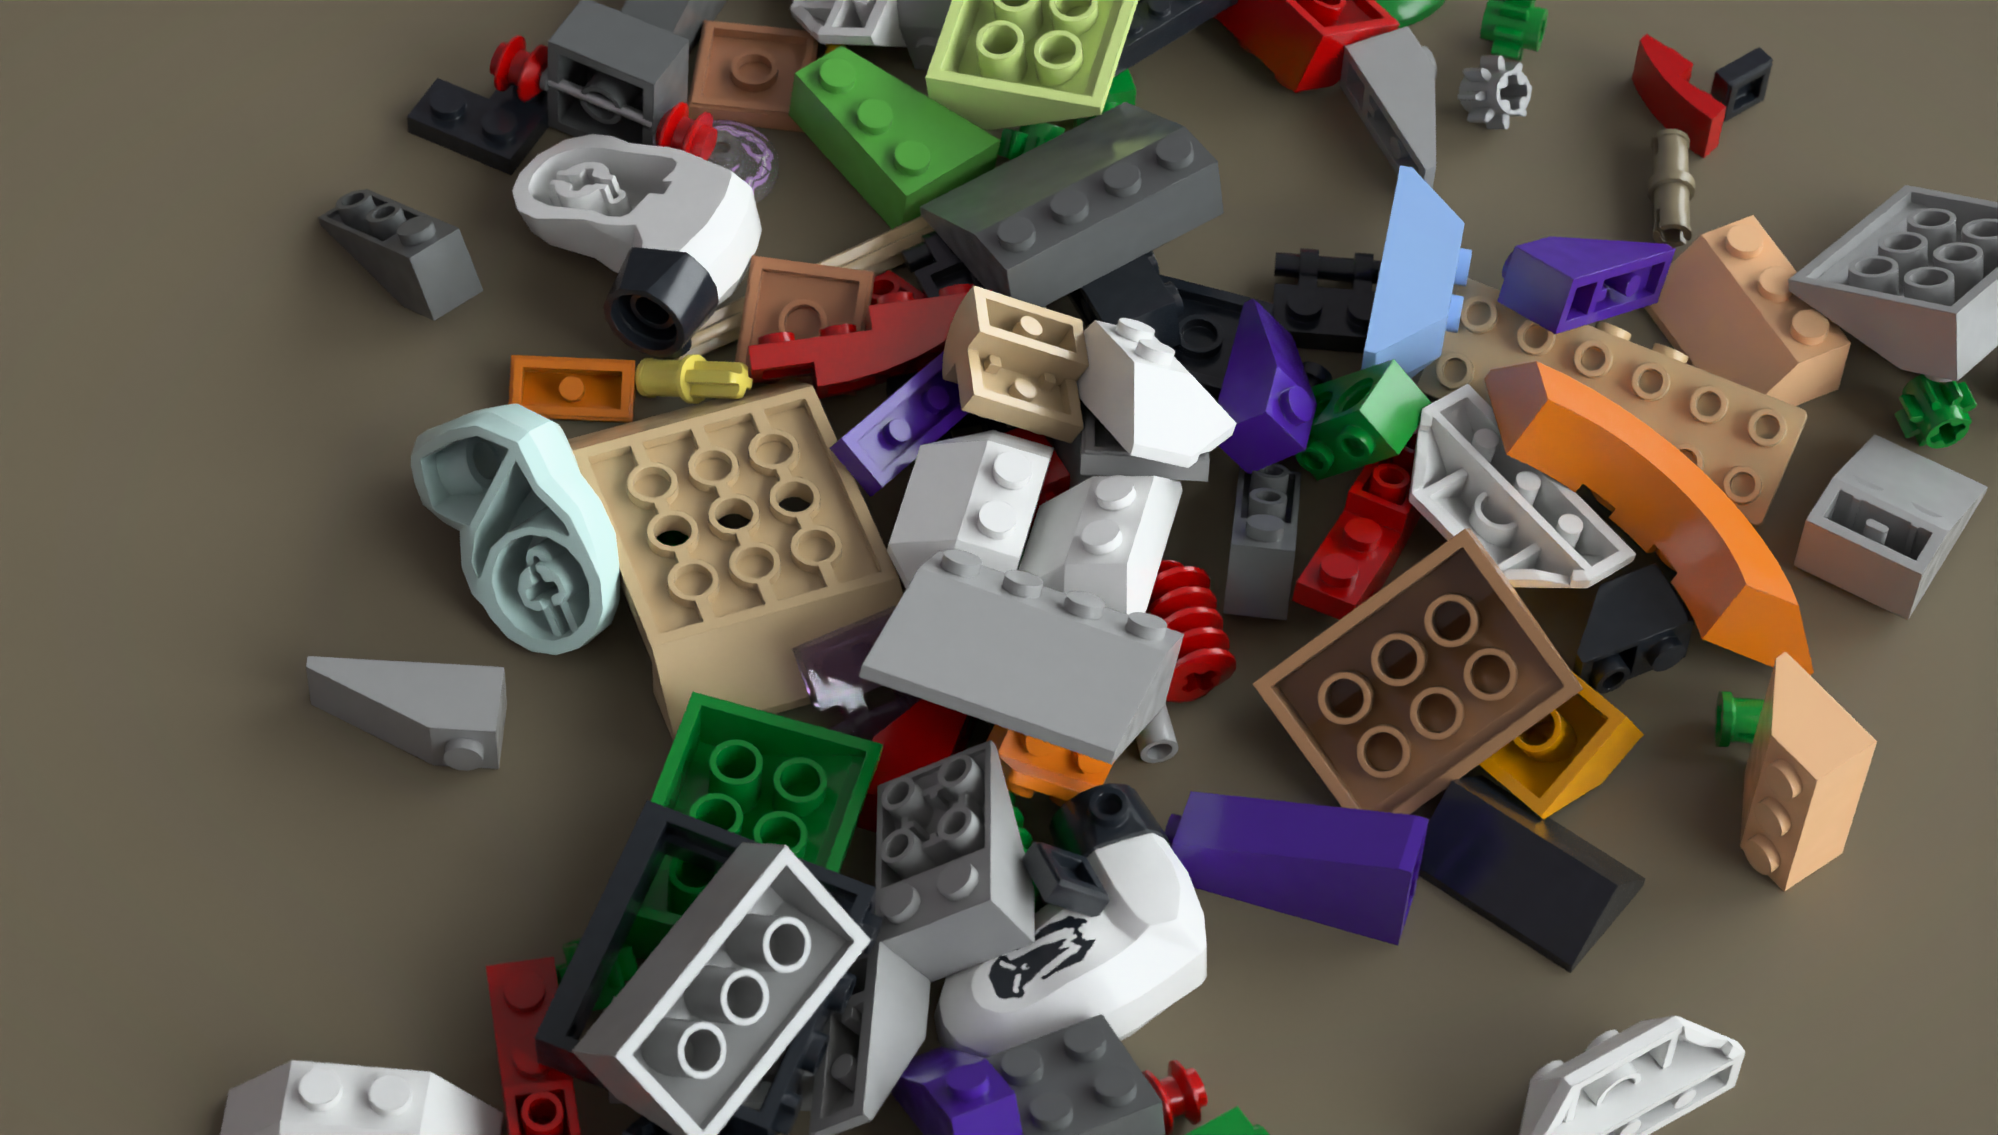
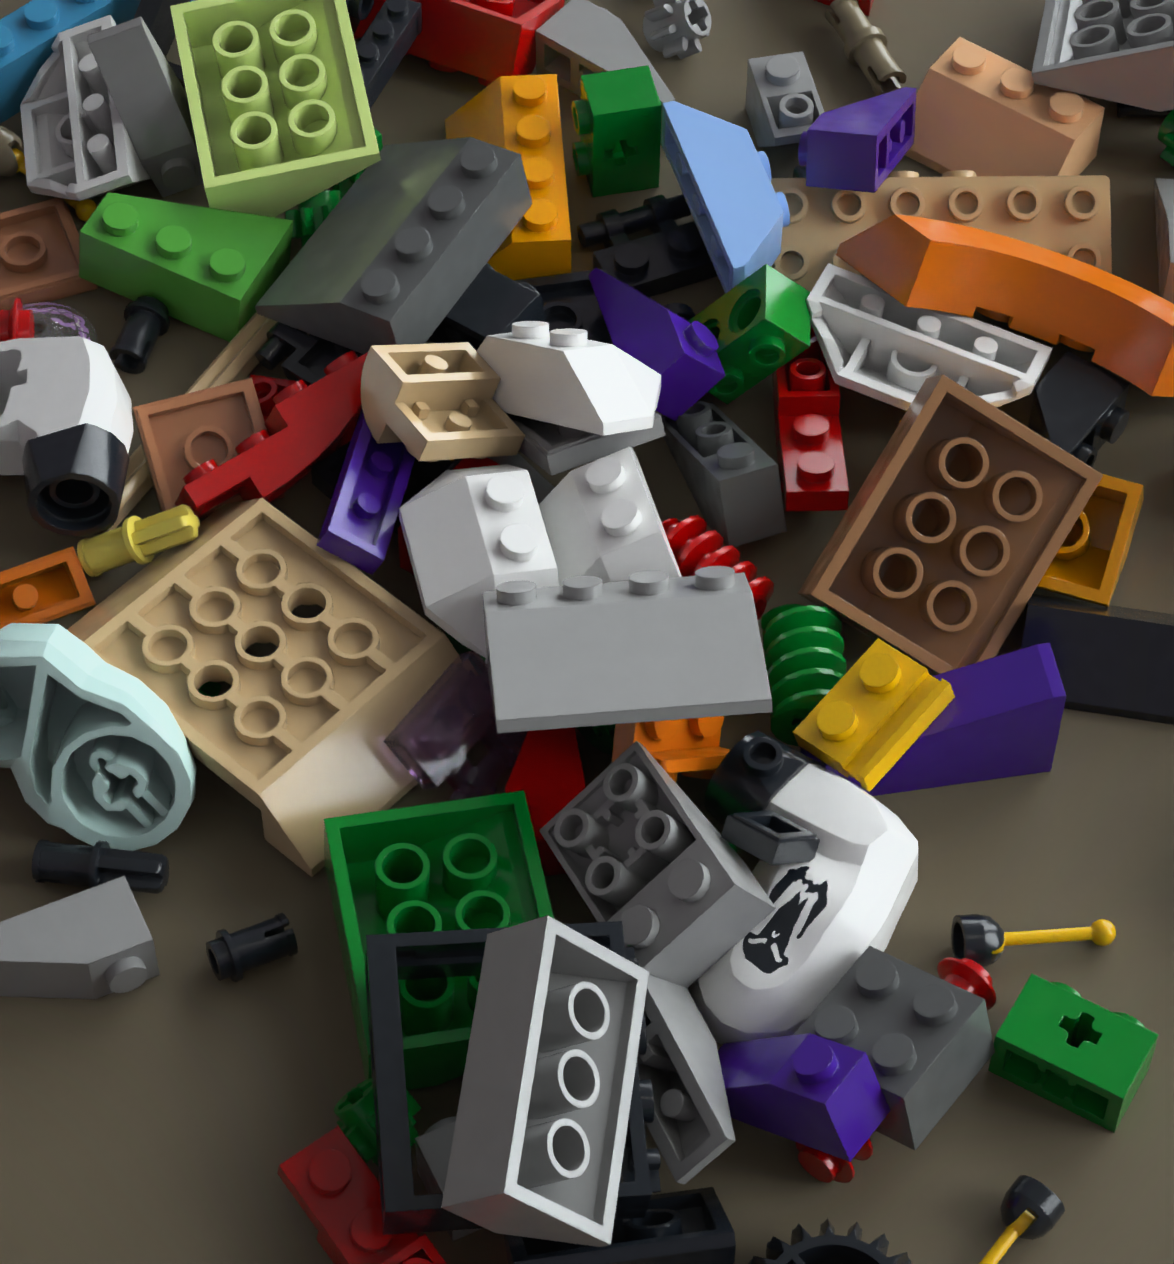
camera: 25 degrees left, 0 degrees up
(498, 649) = (98, 865): none -> black axle
(583, 778) = (250, 947): none -> black pin
(822, 182) = (145, 321): none -> black pin
(1217, 747) = (801, 662): none -> green piece
(1227, 1063) = (983, 939): none -> hinge
(1236, 815) = (873, 714): none -> yellow plate
(1265, 156) = (525, 118): none -> light orange slope
(1358, 175) = (618, 131): none -> green brick
(1545, 202) = (781, 98): none -> light grey slope

